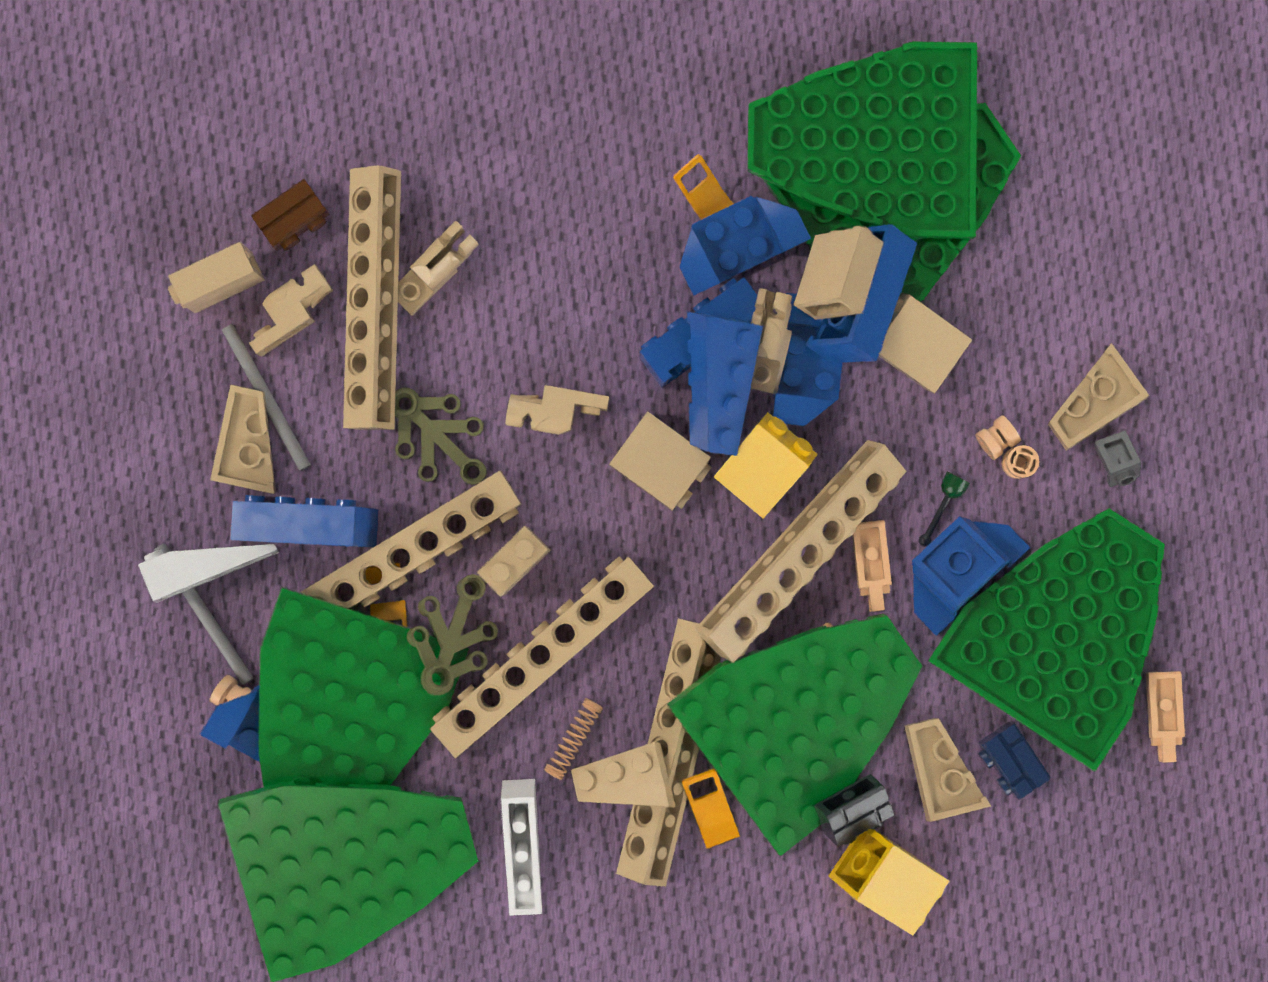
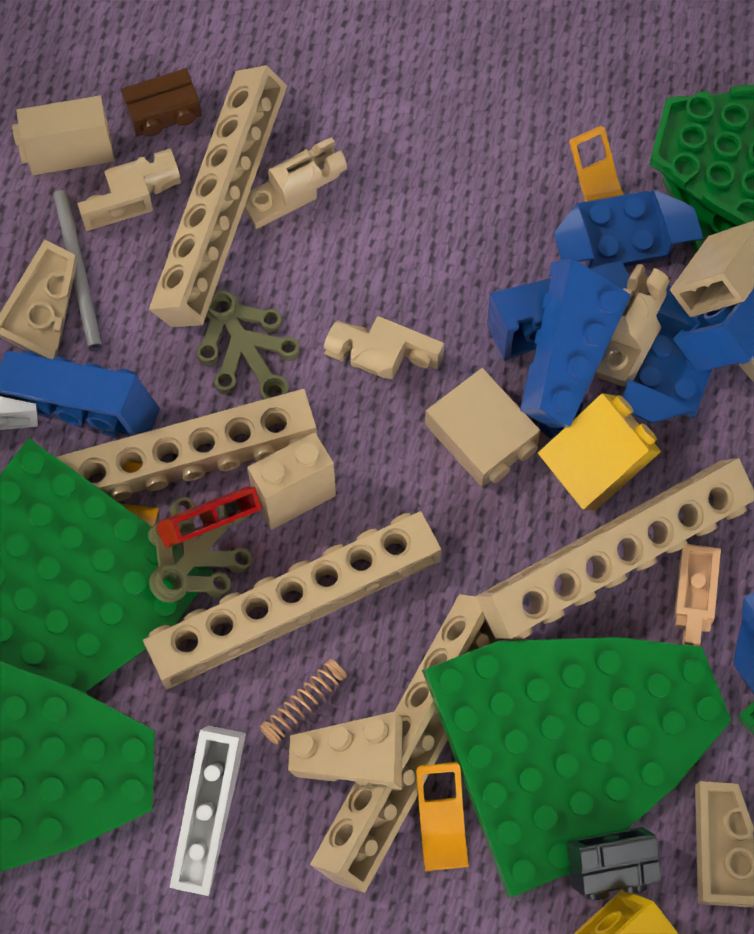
camera: 20 degrees right, 20 degrees down
(455, 615) = (245, 497): none -> red piece

